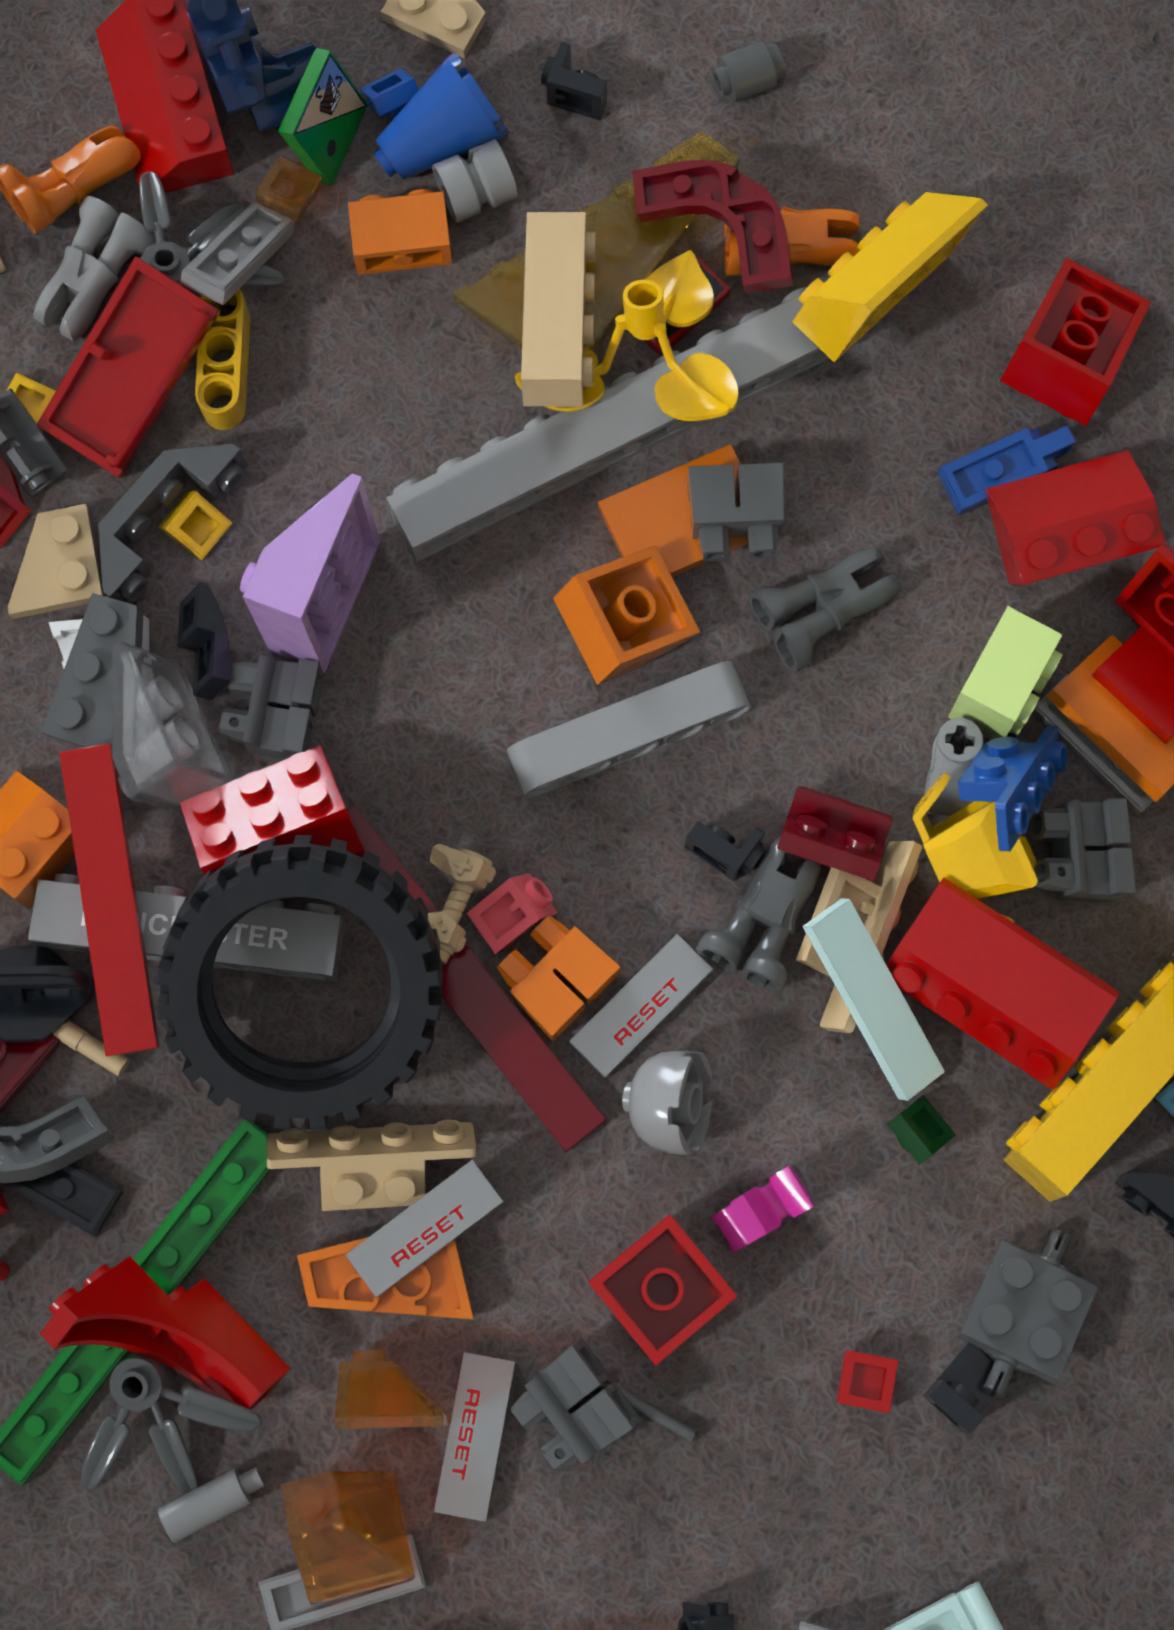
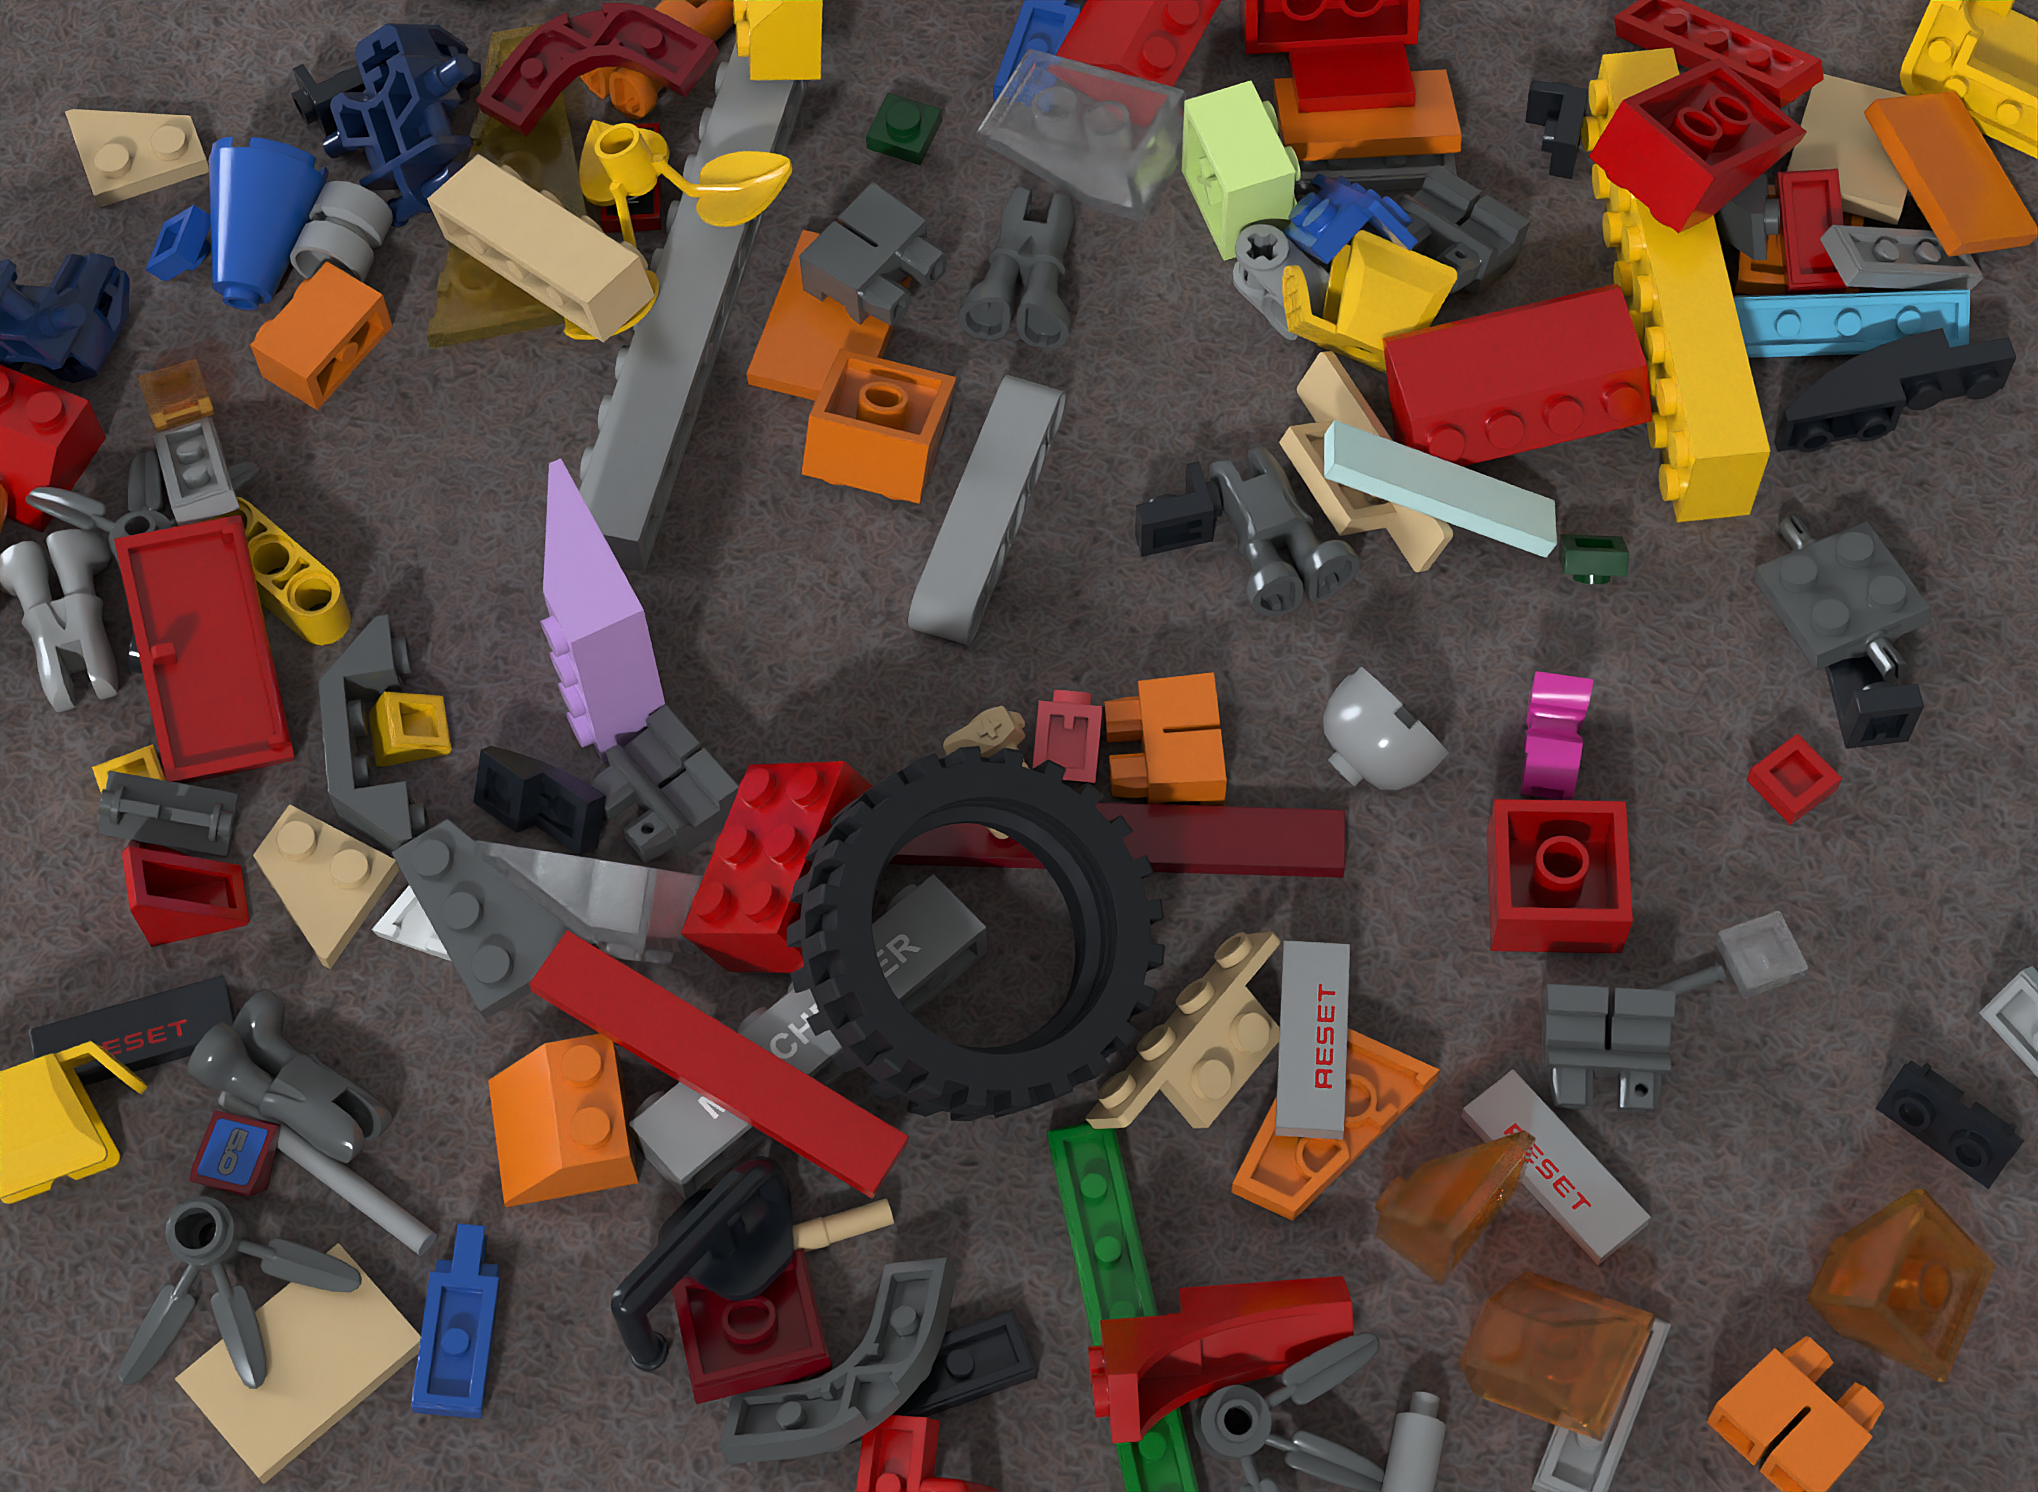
camera: 50 degrees left, 15 degrees down
(323, 116) = (145, 300): green tile -> none
(593, 134) = (402, 118): none -> dark blue piece
(641, 1006) = (1261, 703): light grey tile -> none
(716, 1457) = (1761, 954): none -> clear tile
(835, 833) = (1248, 412): dark red bracket -> none
(865, 437) = (904, 128): none -> dark green plate
(954, 555) = (1089, 131): none -> clear slope

